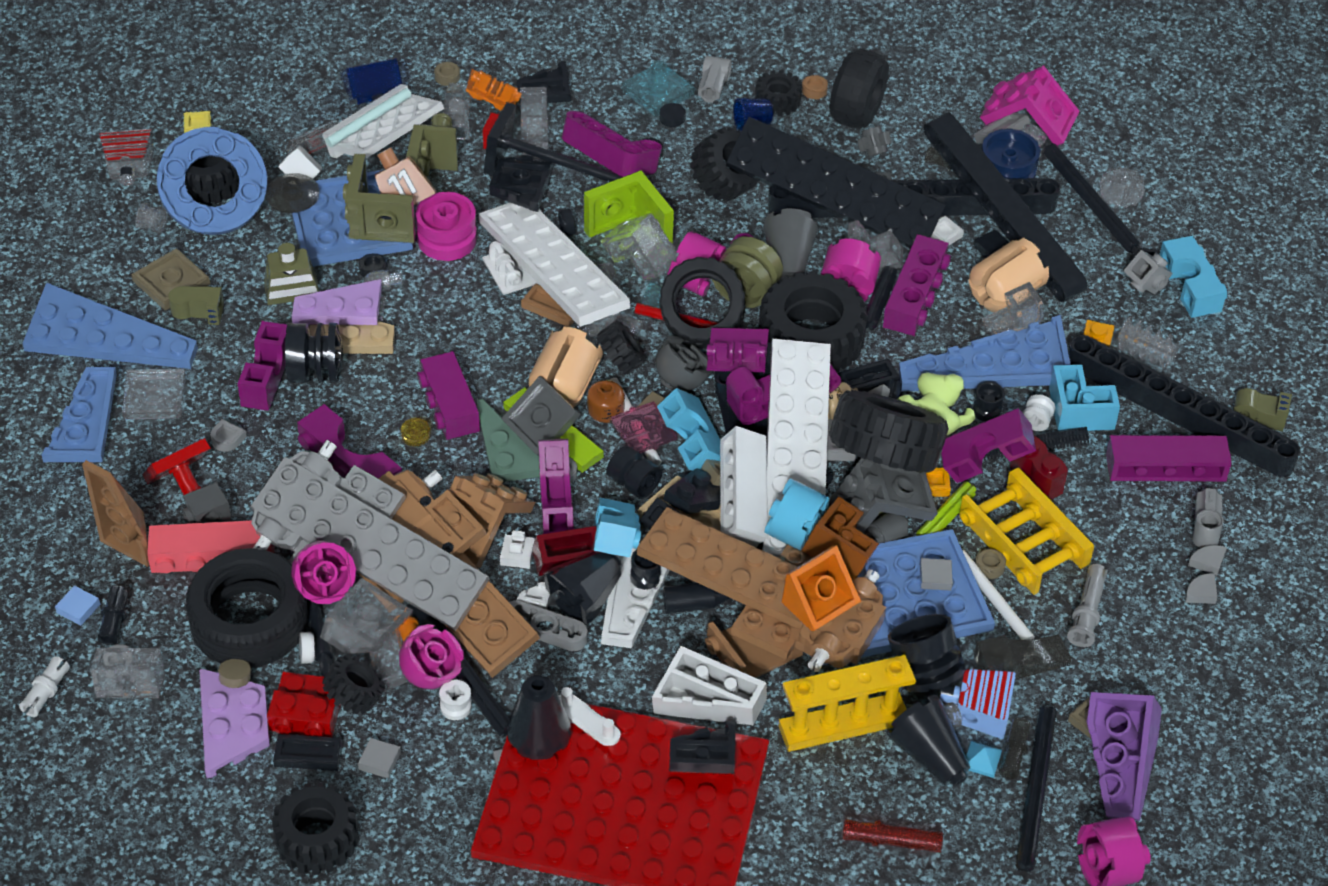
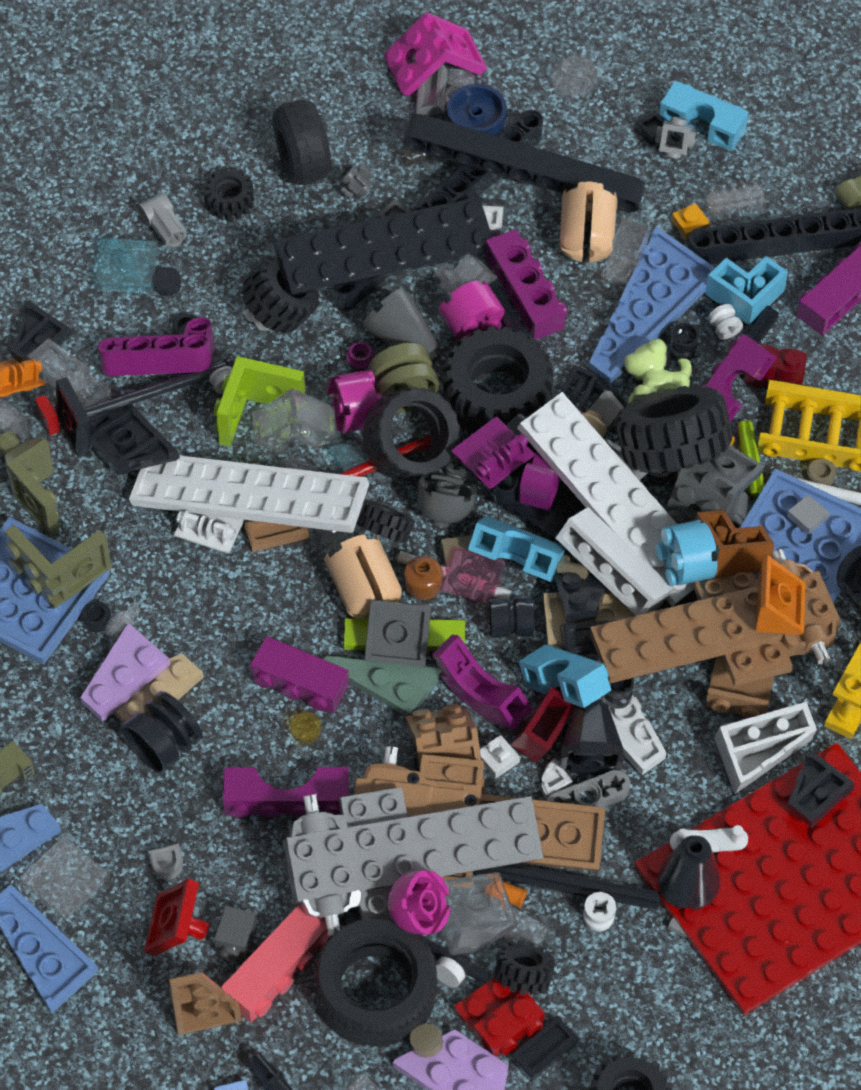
camera: 45 degrees left, 10 degrees up
(261, 379) = (141, 789): magenta arch -> none
(288, 275) = (54, 679): olive torso -> none
(379, 758) = (598, 1005): light grey tile -> none
(402, 177) = (60, 523): torso -> none
(430, 657) = (555, 897): dark pink cylinder -> none
(446, 226) = (127, 527): dark pink wheel -> none
(566, 222) = (206, 447): black tile -> none
(690, 598) = (660, 686): black wheel -> none
(755, 108) = (232, 230): clear blue piece -> none
(814, 87) = (248, 163): medium nougat tile -> none
(990, 243) = (536, 203): black tile -> none
(1091, 197) = (561, 102): black axle -> none

